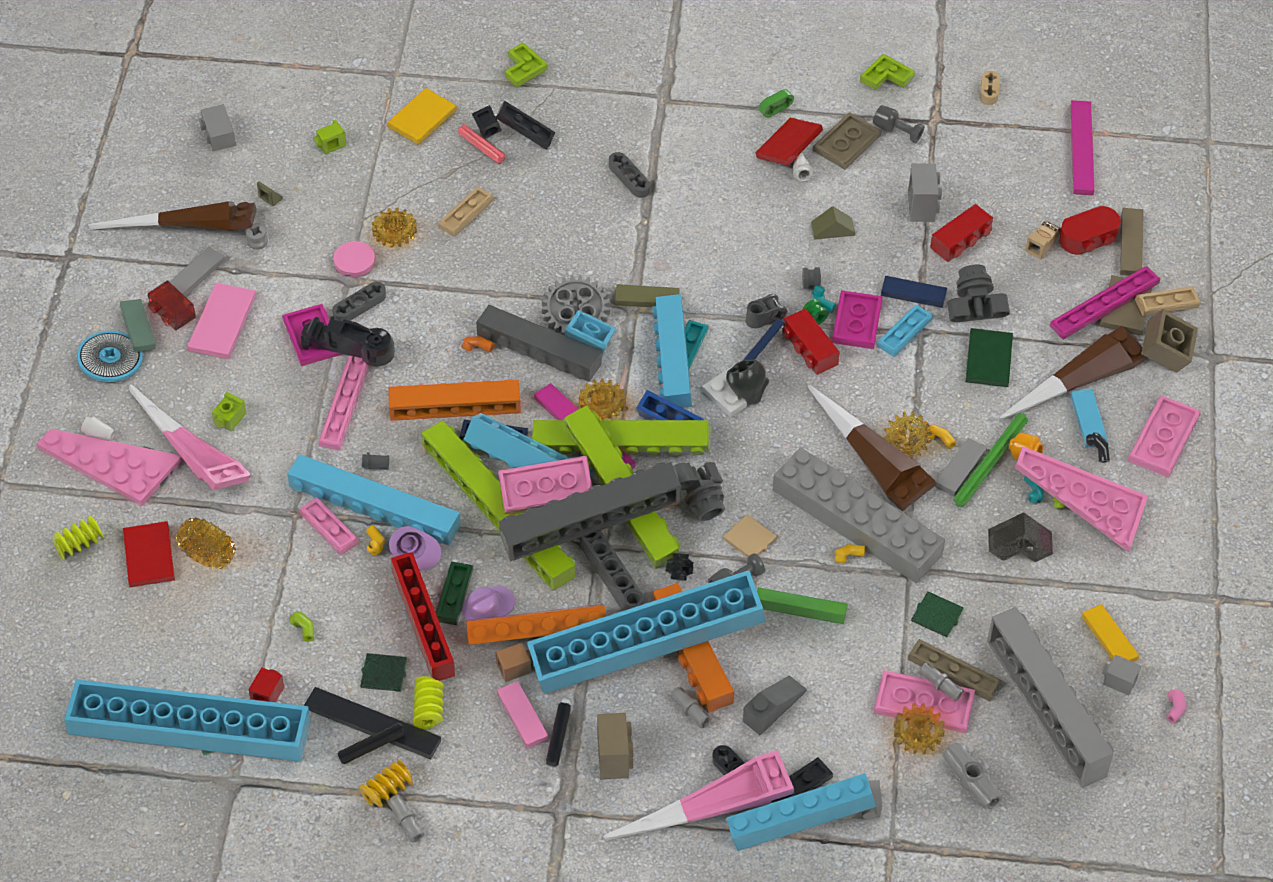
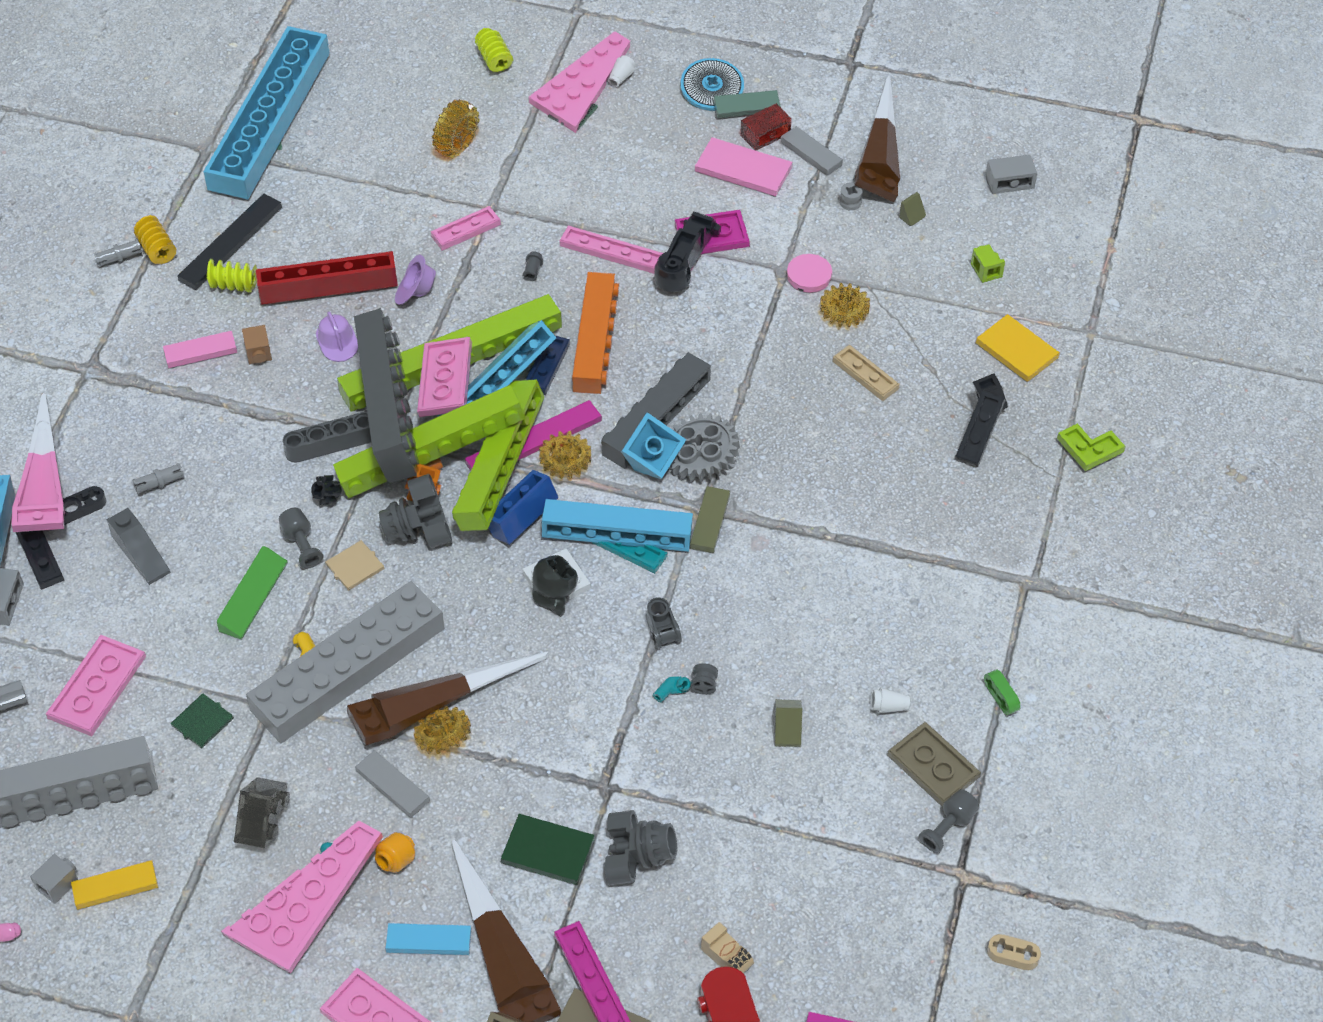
camera: 100 degrees right, 0 degrees up
(148, 554) = (483, 97): red tile -> none
(204, 460) = (557, 142): bright pink plate -> none
(229, 411) = (619, 161): lime brick -> none
(266, 686) = (289, 167): red brick -> none
(305, 623) = (354, 201): lime arm -> none
(363, 294) = (747, 281): dark grey beam -> none
(371, 743) = (203, 233): black axle -> none
(373, 499) = (481, 259): medium azure brick -> none
(378, 540) = (437, 261): yellow arm -> none
(383, 672) = (284, 252): clear green piece -> none
(454, 593) = (349, 308): dark green tile -> none
(478, 341) = (672, 355): orange arm -> none
(481, 143) = (957, 401): coral axle -> none
(530, 624) = (290, 363): orange brick -> none
(558, 734) = (167, 373): black axle -> none
(614, 746) = (125, 400): dark tan brick -> none
(630, 182) = (907, 518): dark grey beam -> none
(646, 632) = (236, 438): medium azure brick -> none
(702, 667) = (225, 488): orange brick -> none
(764, 340) = (610, 610): dark blue tile -> none
(789, 141) = (932, 693): red tile -> none
(810, 341) = (606, 661): red brick -> none
(816, 310) = (650, 673): green wheel -> none
(857, 319) = (636, 720): dark pink tile -> none
(884, 69) = (1054, 828): lime plate -> none
(904, 330) = (610, 767): medium azure tile -> none
(913, 291) = (668, 787): dark blue tile -> none
(917, 738) = (58, 665): clear yellow gear -> none
(924, 192) = (814, 816): light grey brick -> none
(941, 681) = (103, 693): light grey pin -> none
(943, 434) = (444, 771): yellow arm -> none
(957, 670) = (128, 716): dark tan tile -> none
(961, 232) = (749, 856): red brick -> none
(990, 460) = (394, 816): bright green axle -> none
(1101, 444) = (377, 935): black arm -> none

